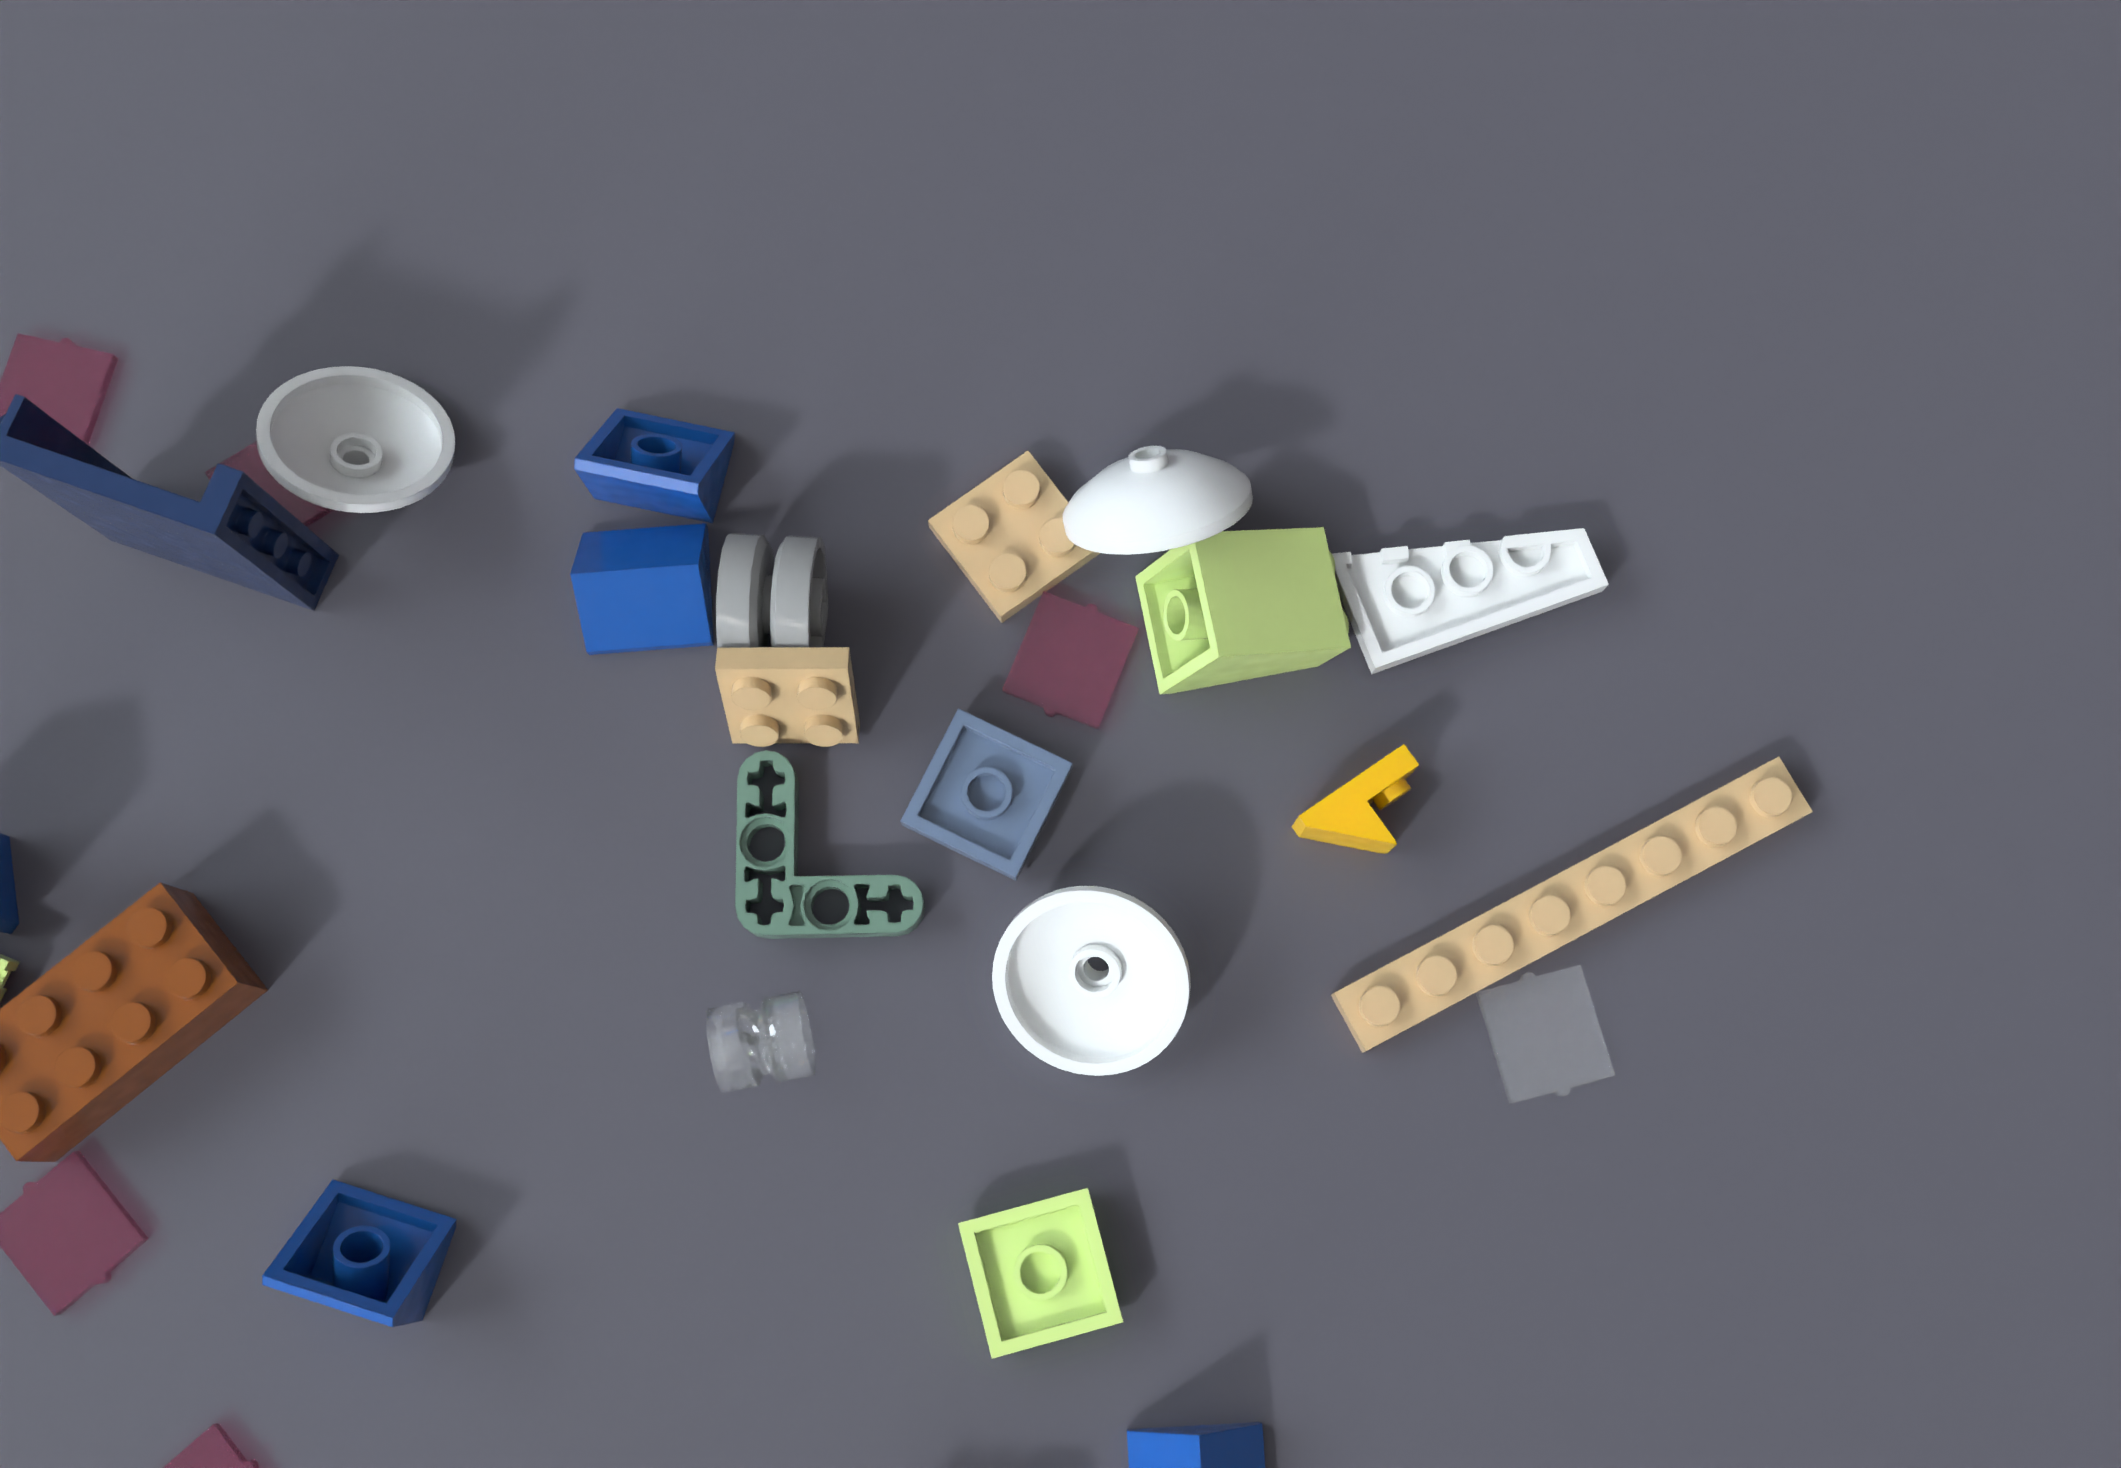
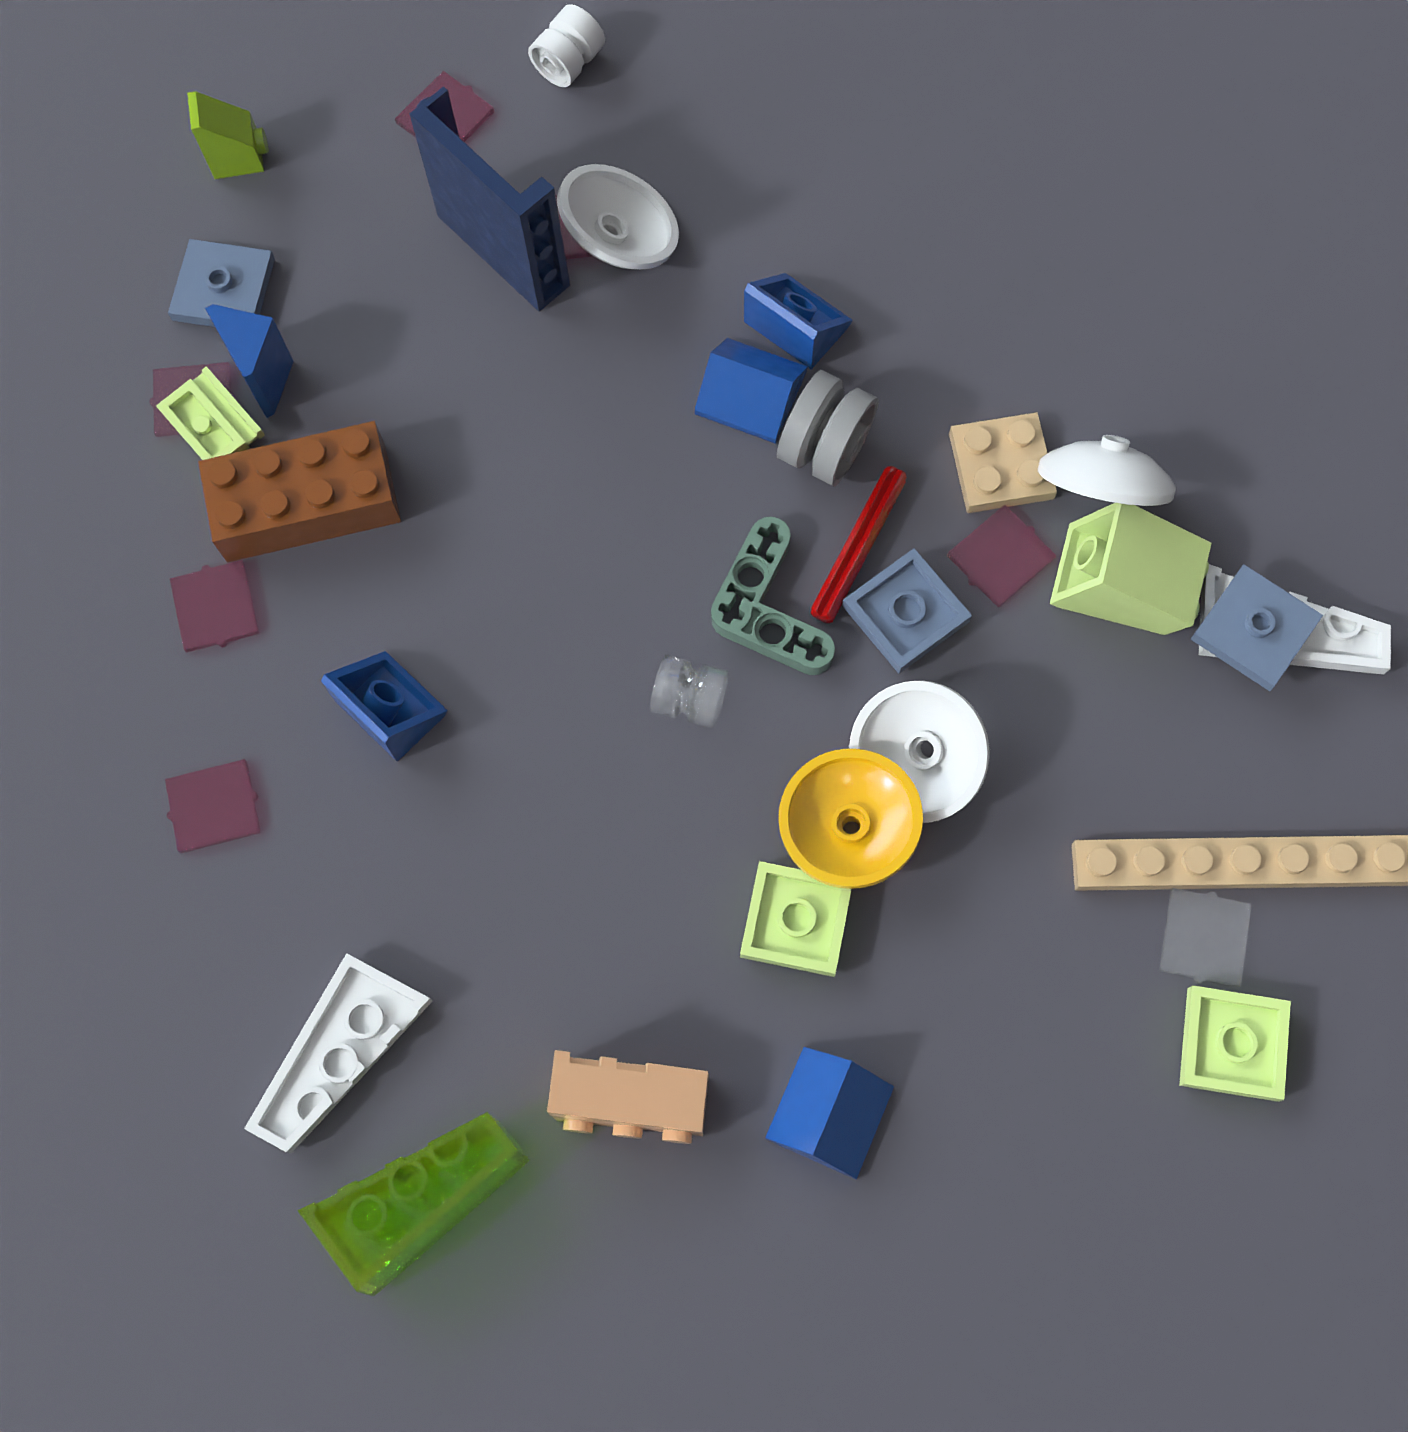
camera: 30 degrees right, 5 degrees down
(171, 226) = (567, 45): none -> white wheel
(788, 695) = (811, 487): tan plate -> none
(885, 734) = (858, 544): none -> red axle
(999, 1102) = (845, 789): none -> yellow dish
(1346, 814) = (1138, 730): yellow slope -> none
(1428, 611) = (1256, 627): none -> sand blue plate
(1643, 1156) = (1235, 1043): none -> yellowish green plate

